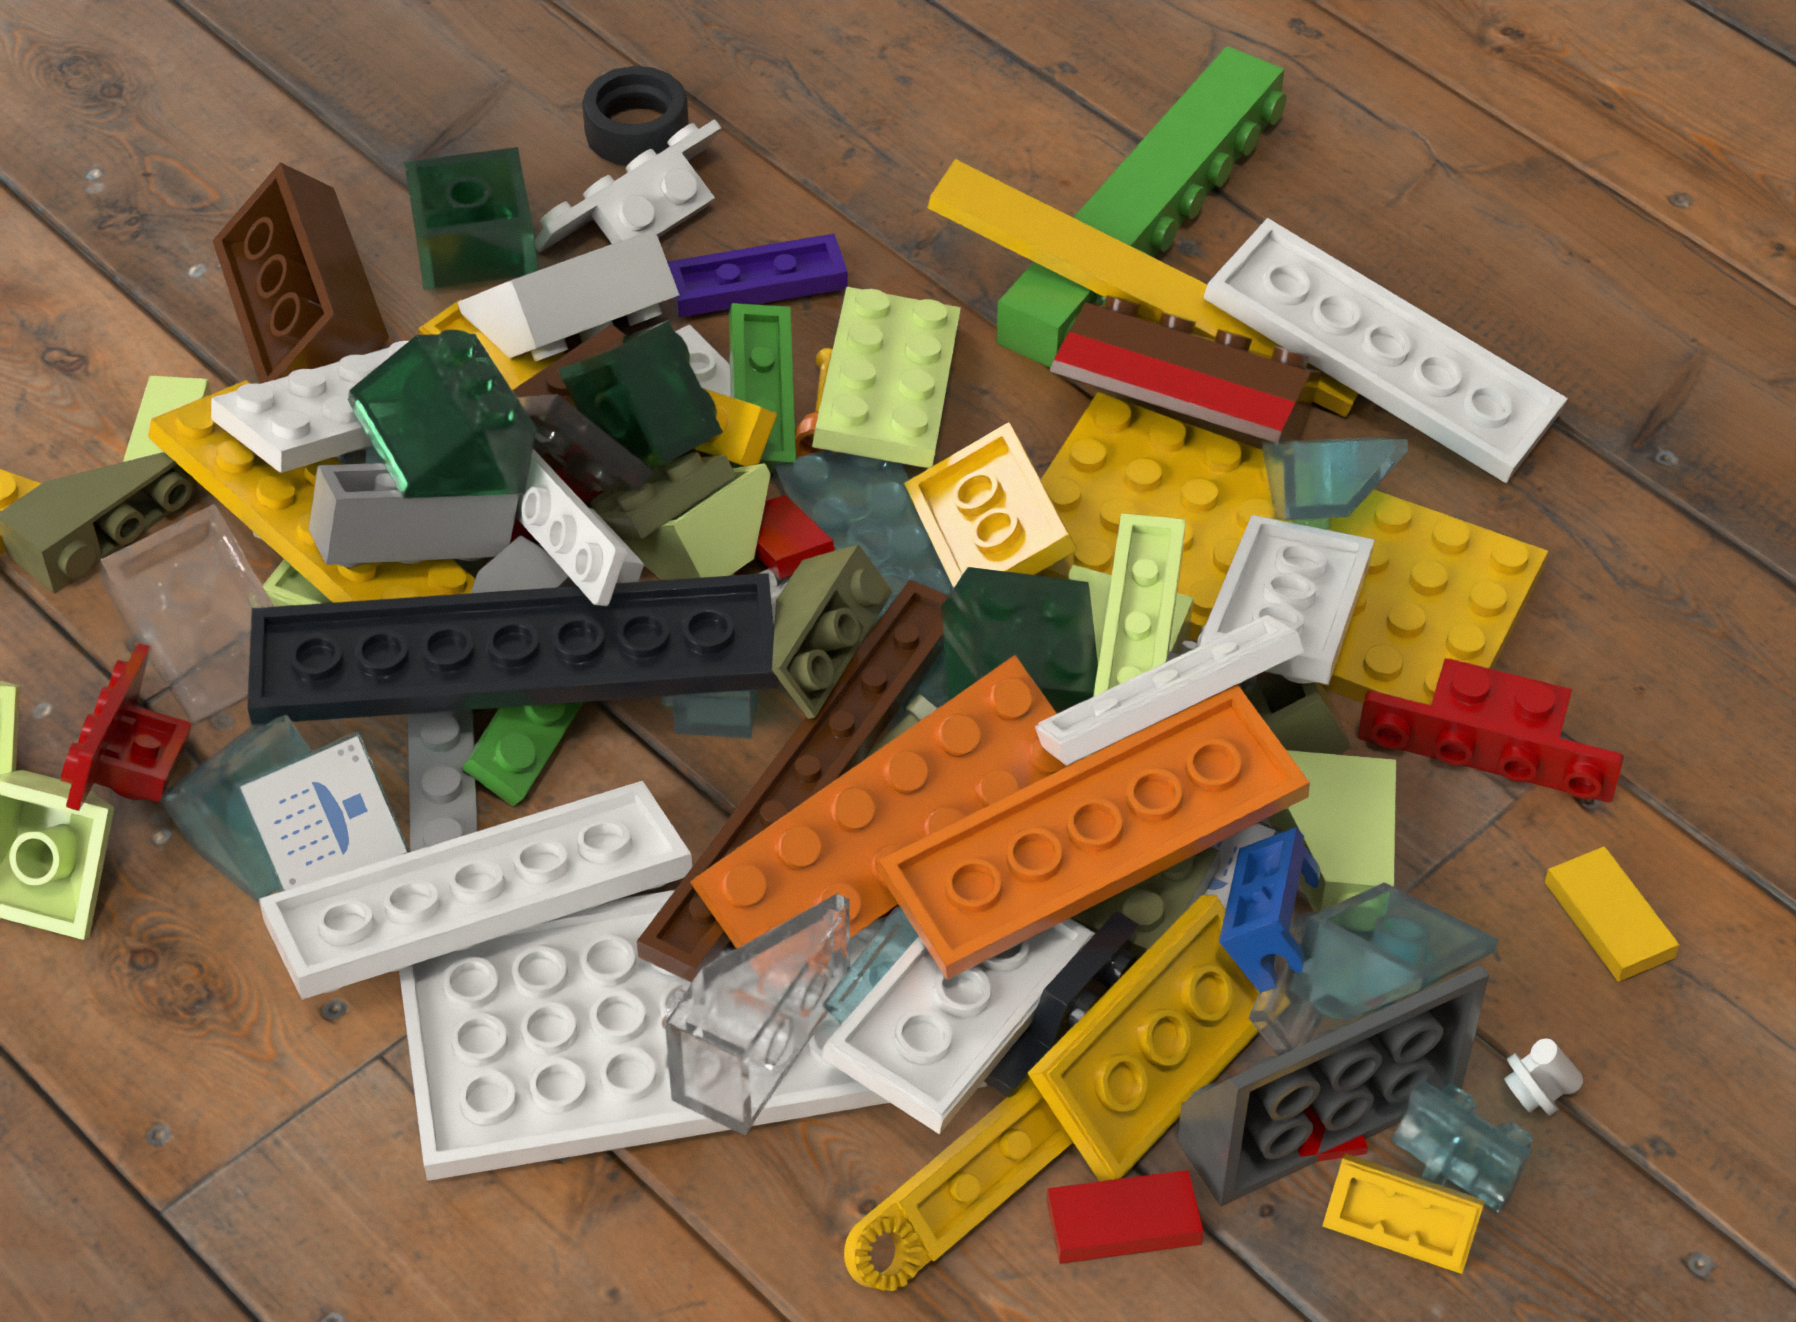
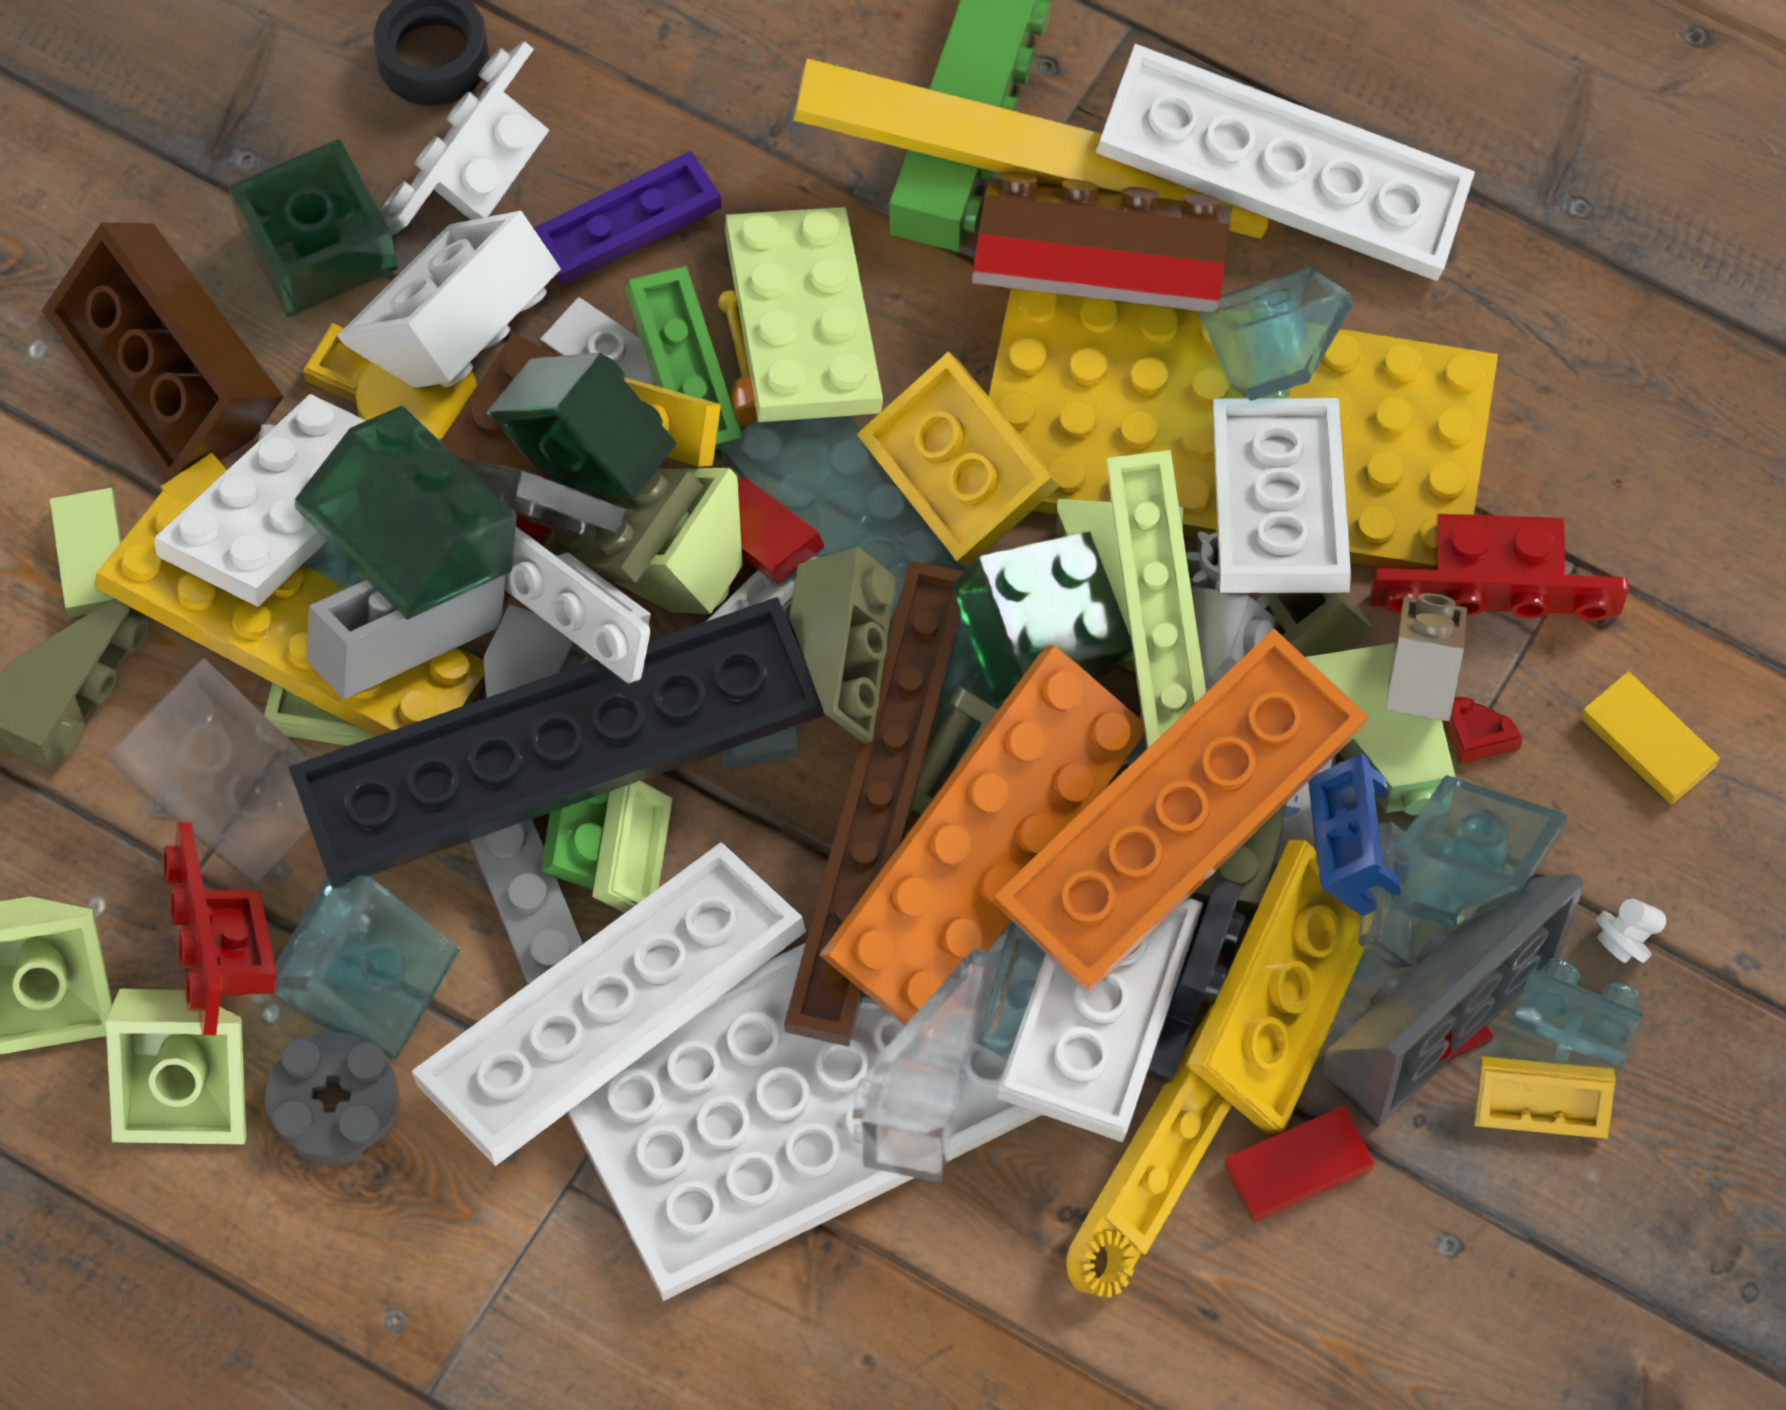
camera: 15 degrees left, 15 degrees up
(178, 886) = (357, 1124): none -> dark grey plate
(320, 814) = (433, 967): white tile -> none
(558, 762) = (632, 845): none -> yellowish green tile
(1168, 689) = (1211, 648): white tile -> none
(1392, 766) = (1427, 657): none -> slope
(1434, 867) = (1480, 731): none -> red tile

